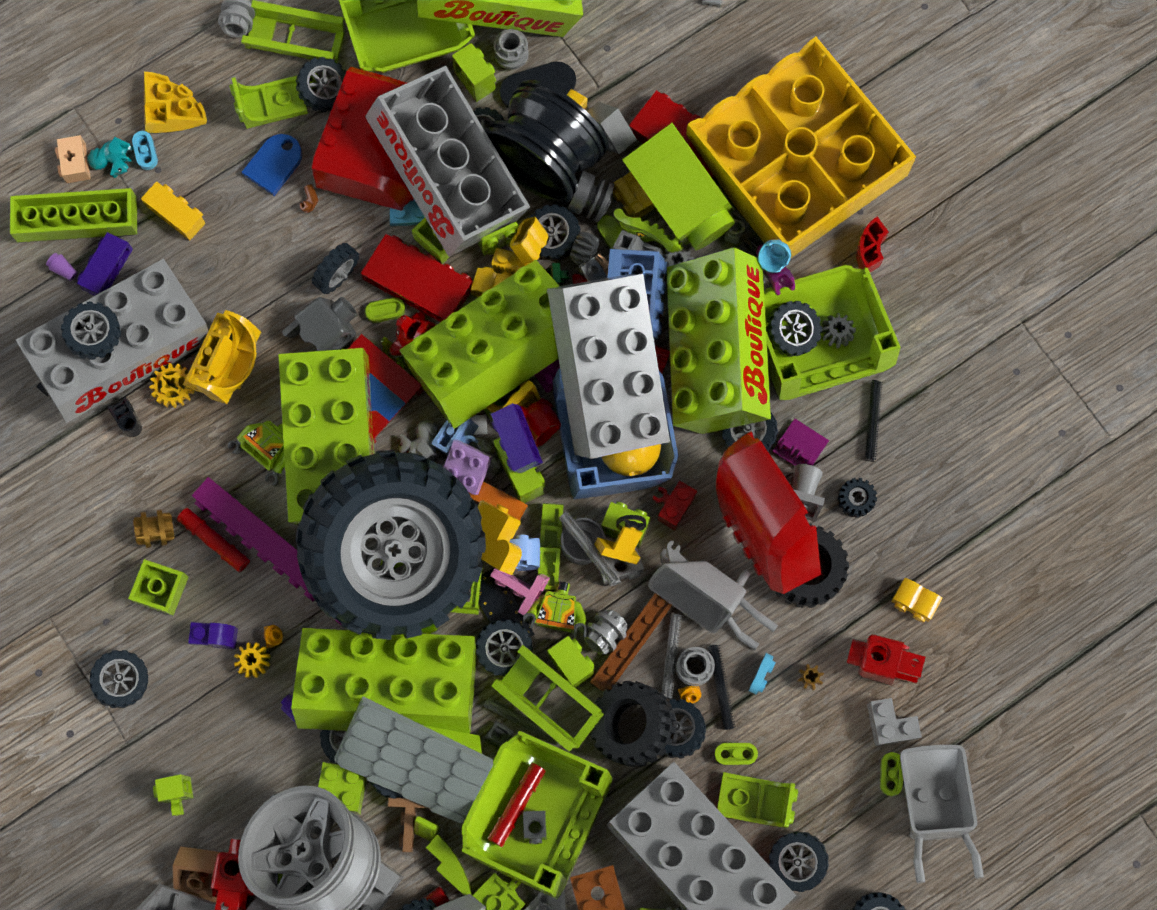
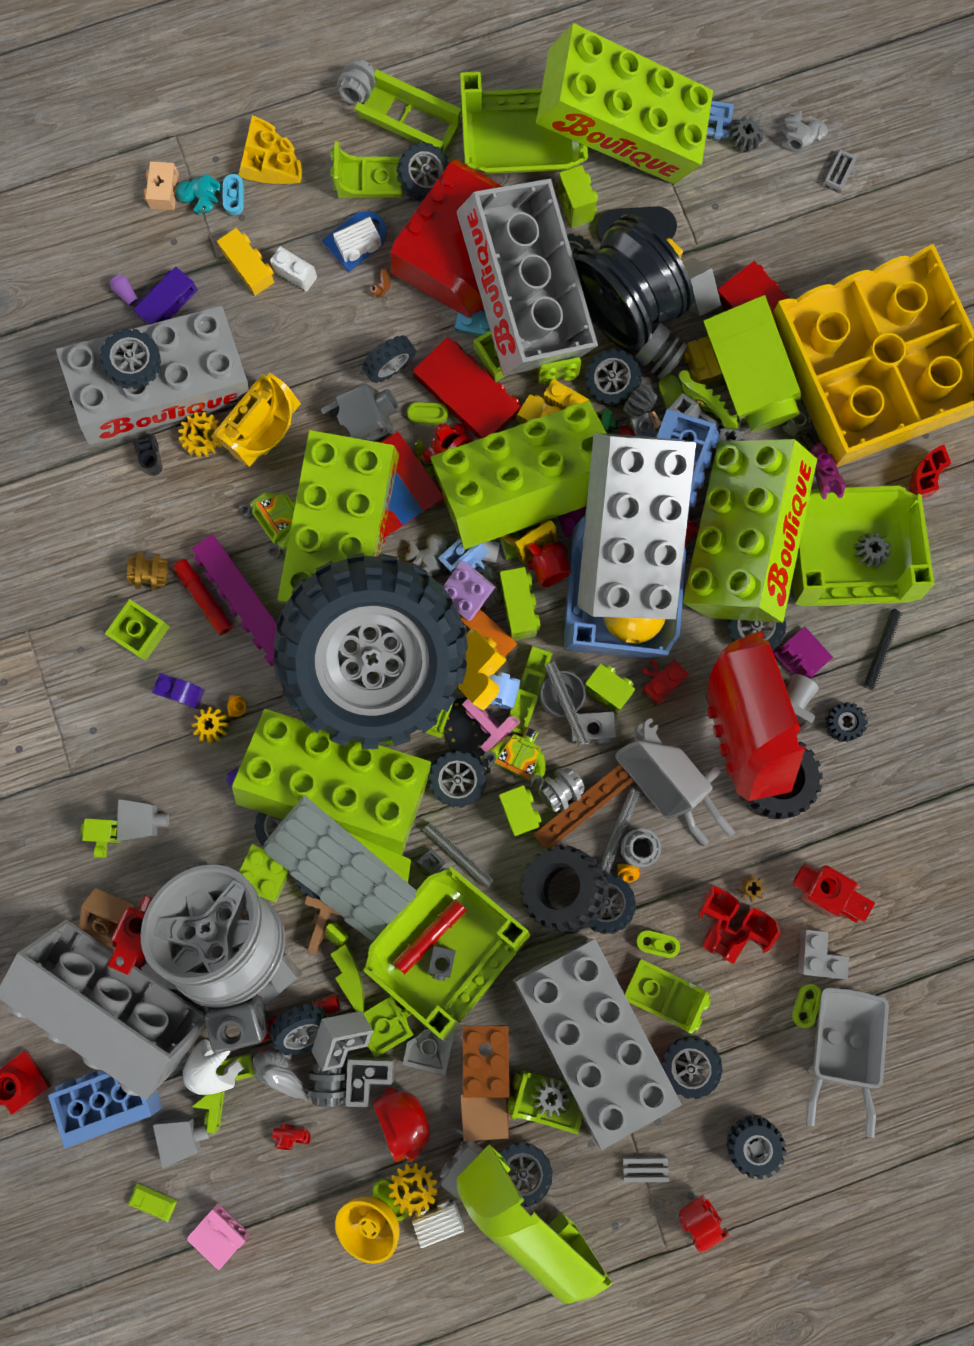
camera: 15 degrees right, 5 degrees up
(73, 215) = (147, 241): lime brick -> none
(114, 658) = (60, 695): black wheel -> none
(206, 770) = (138, 820): none -> light grey torso
(221, 206) = (293, 269): none -> white brick
(276, 164) = (357, 239): none -> white brick
(513, 40) = (619, 182): light grey piece -> none
(516, 438) = (523, 575): dark purple brick -> none
(521, 678) = (465, 814): lime piece -> none
(529, 240) = (587, 379): yellow brick -> none
(626, 542) = (606, 708): yellow piece -> none
(721, 688) = (660, 879): black axle -> none
(758, 682) = (699, 880): medium azure plate -> none
(774, 256) = (831, 458): medium azure hair -> none
(798, 733) = (729, 943): none -> red piece
(810, 320) = (847, 536): black wheel -> none
(916, 600) = (878, 840): yellow brick -> none

